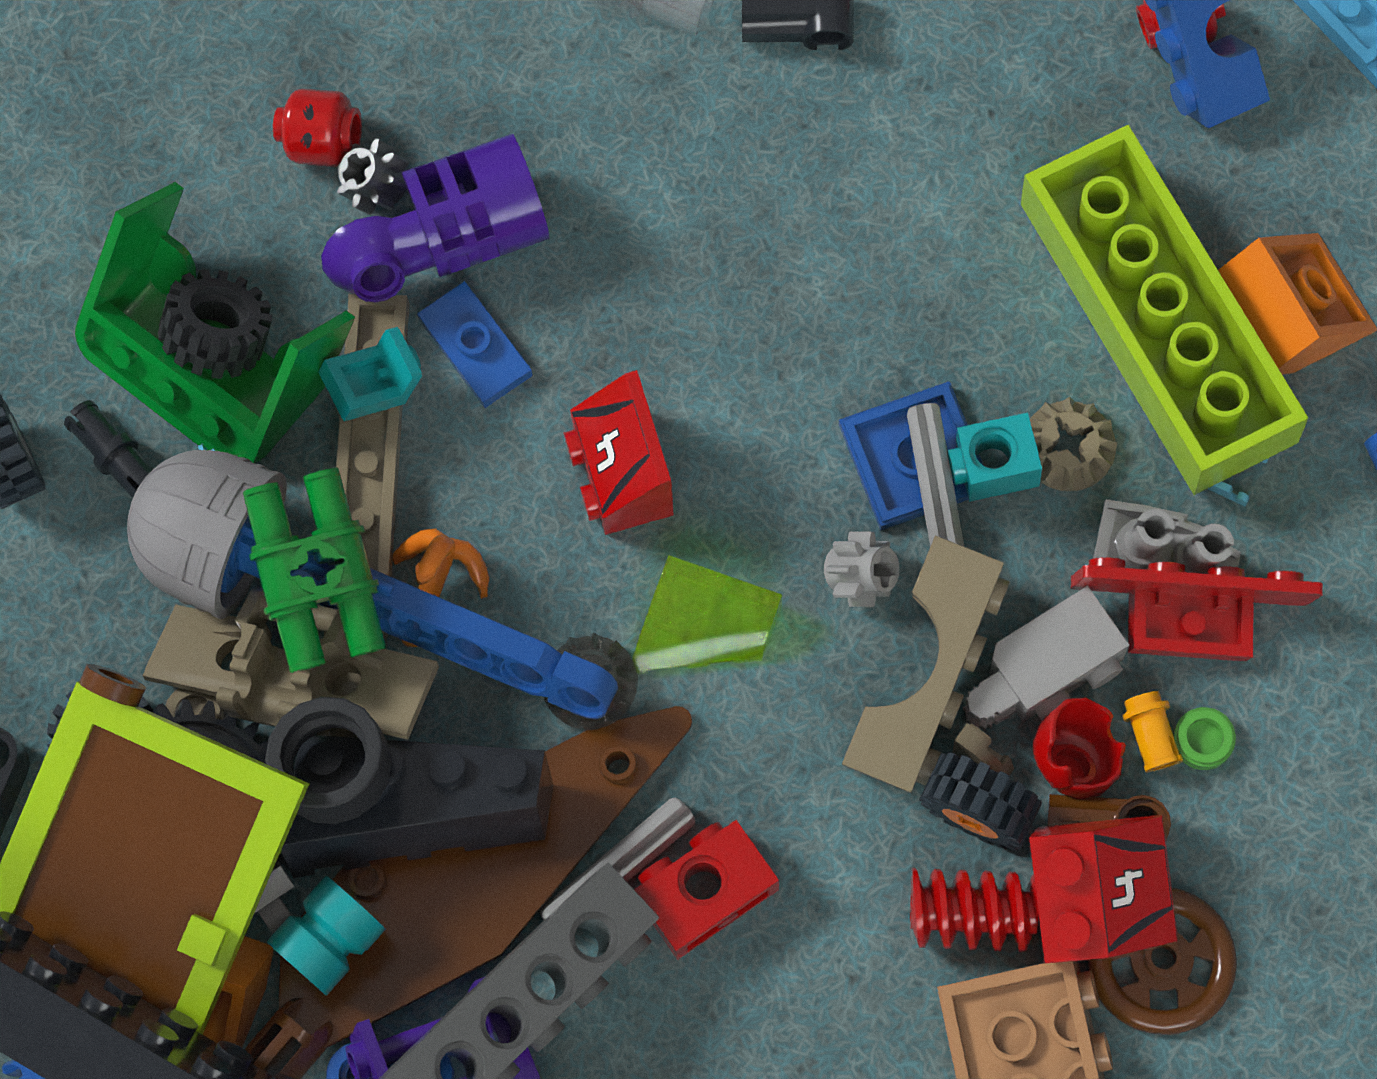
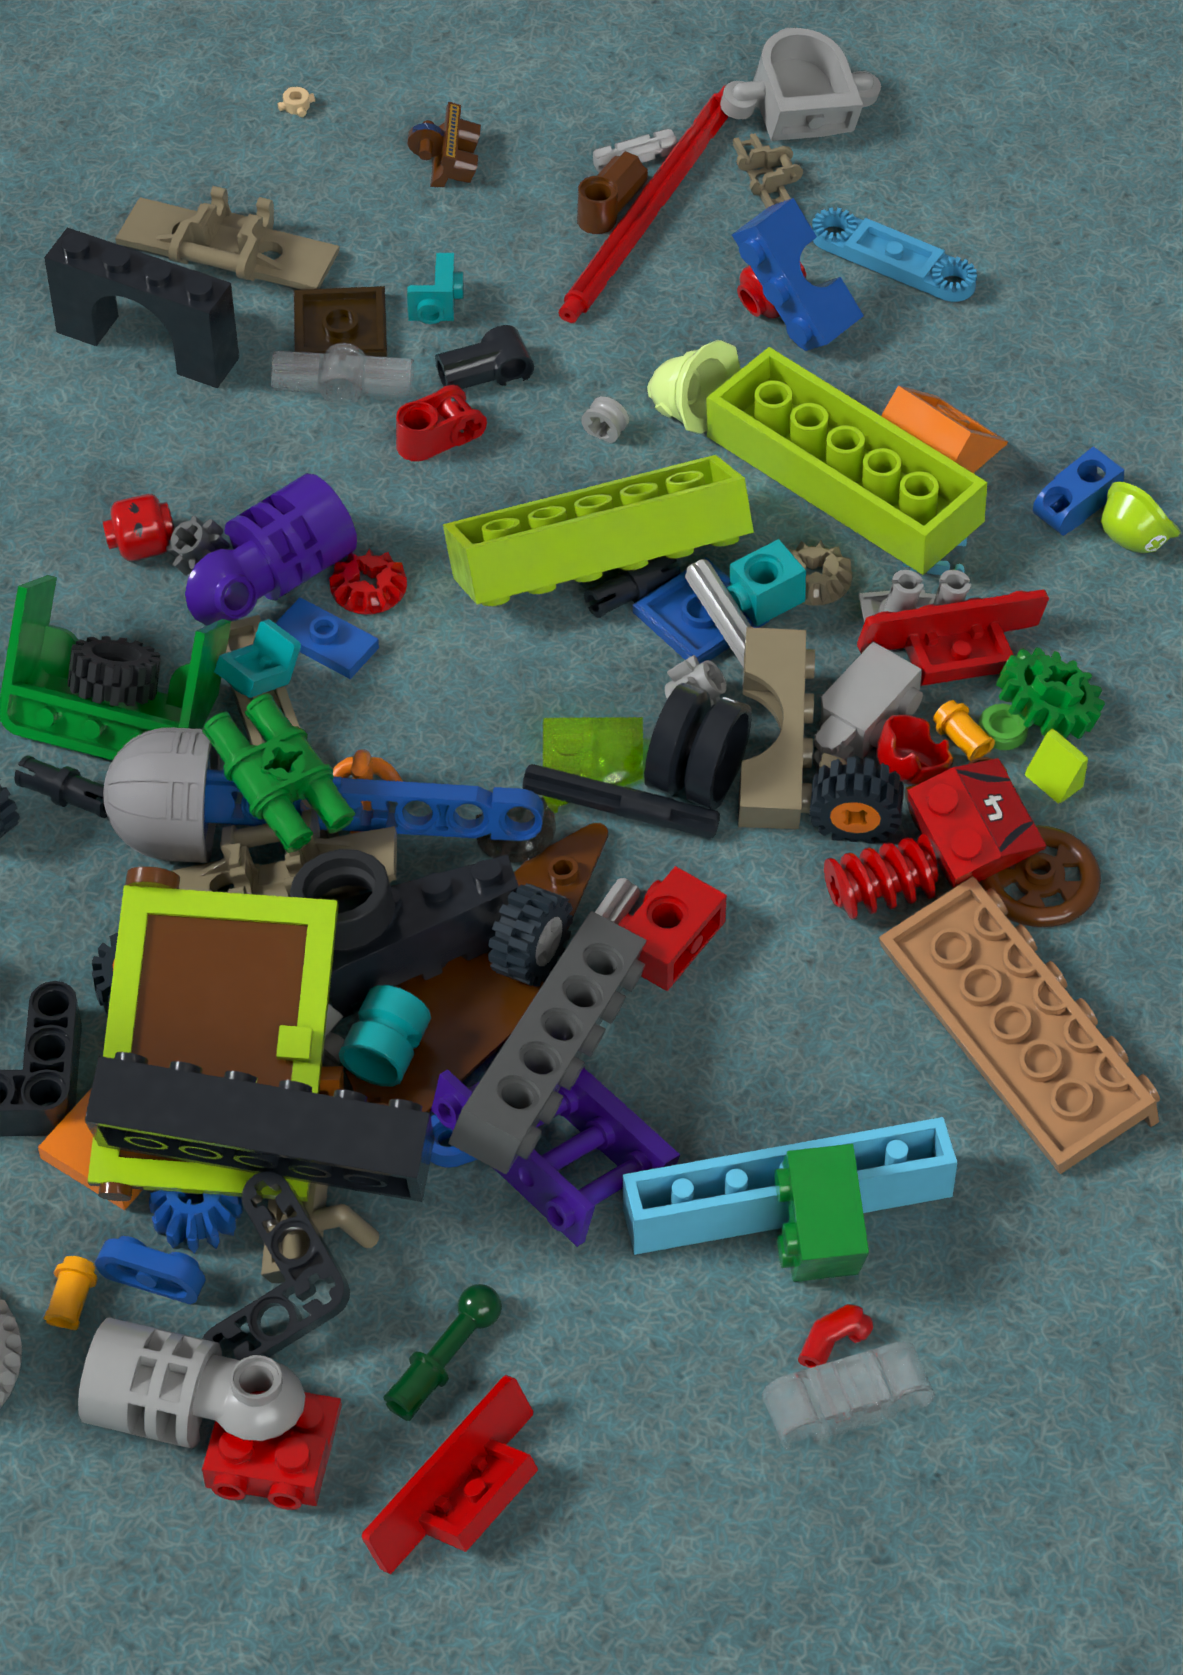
camera: 25 degrees left, 20 degrees down
(531, 866) = (530, 934): none -> black wheel
(574, 295) = (360, 595): none -> red gear
(621, 457) = (479, 662): red slope -> none
(717, 695) = (622, 801): none -> black axle
(718, 87) = (435, 424): none -> red piece
(824, 665) = (697, 746): none -> black wheel
(828, 317) = (598, 530): none -> lime brick
(849, 391) = (630, 585): none -> black pin
(907, 146) = (605, 419): none -> light grey bush
(1024, 132) = (686, 381): none -> yellowish green piece
(1239, 825) = (1057, 767): none -> lime slope
(1275, 753) = (1050, 693): none -> green gear

